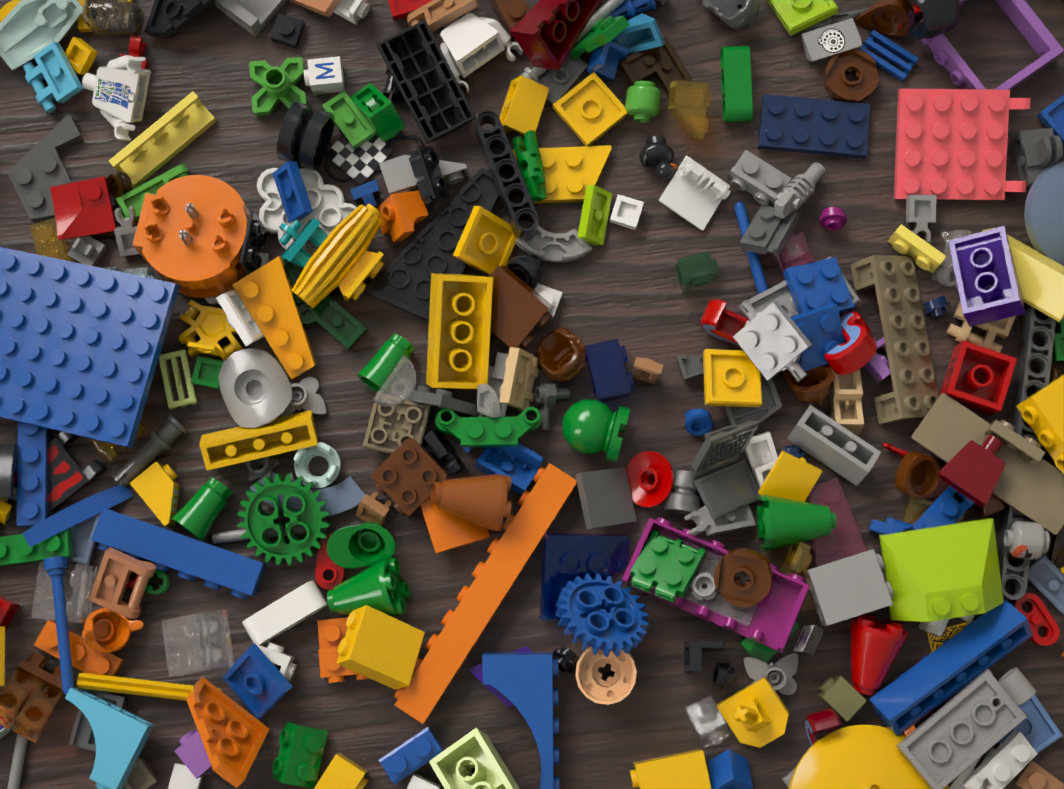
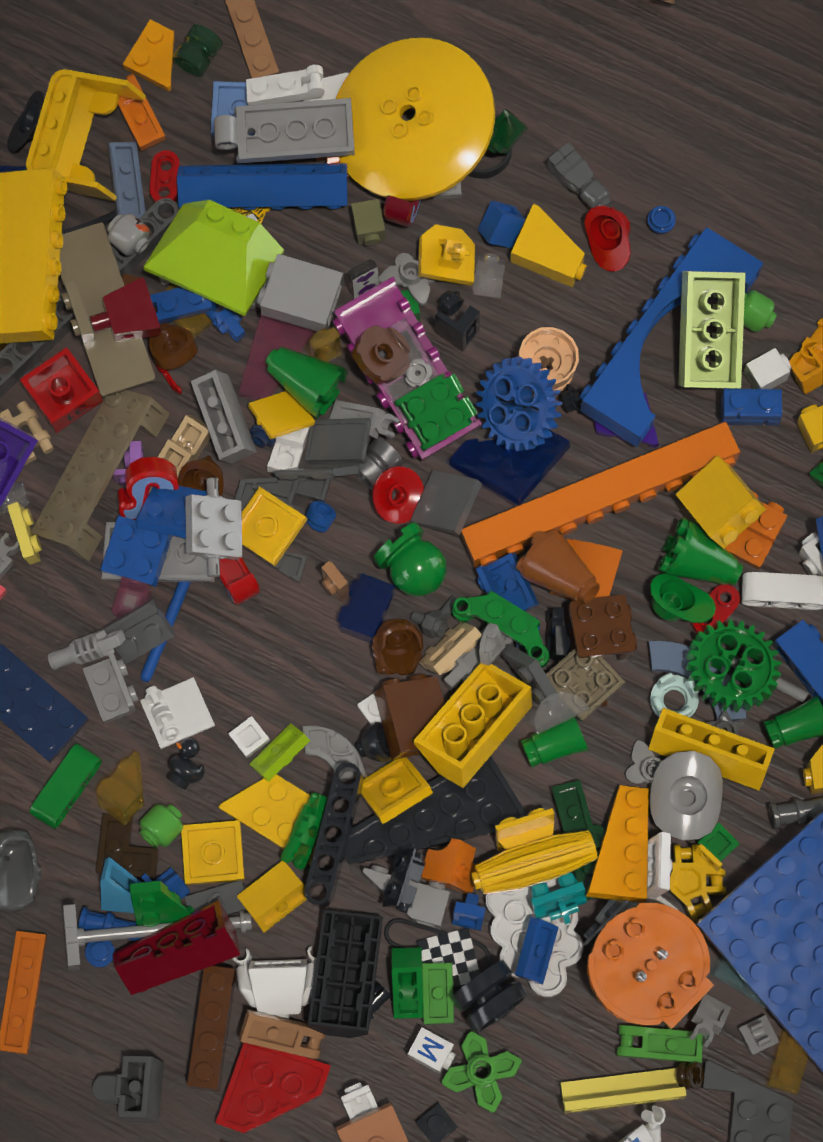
camera: 140 degrees left, 5 degrees down
(83, 209) = (738, 1071): red plate -> none
(182, 402) = (758, 835): yellowish green tile -> none
(372, 510) = (653, 626): medium nougat tile -> none
(696, 270) = (227, 643): clear green window -> none
(833, 218) = (74, 608): magenta plate -> none
(873, 650) = (316, 236): red cone -> none
(936, 306) = (44, 475): dark blue plate -> none

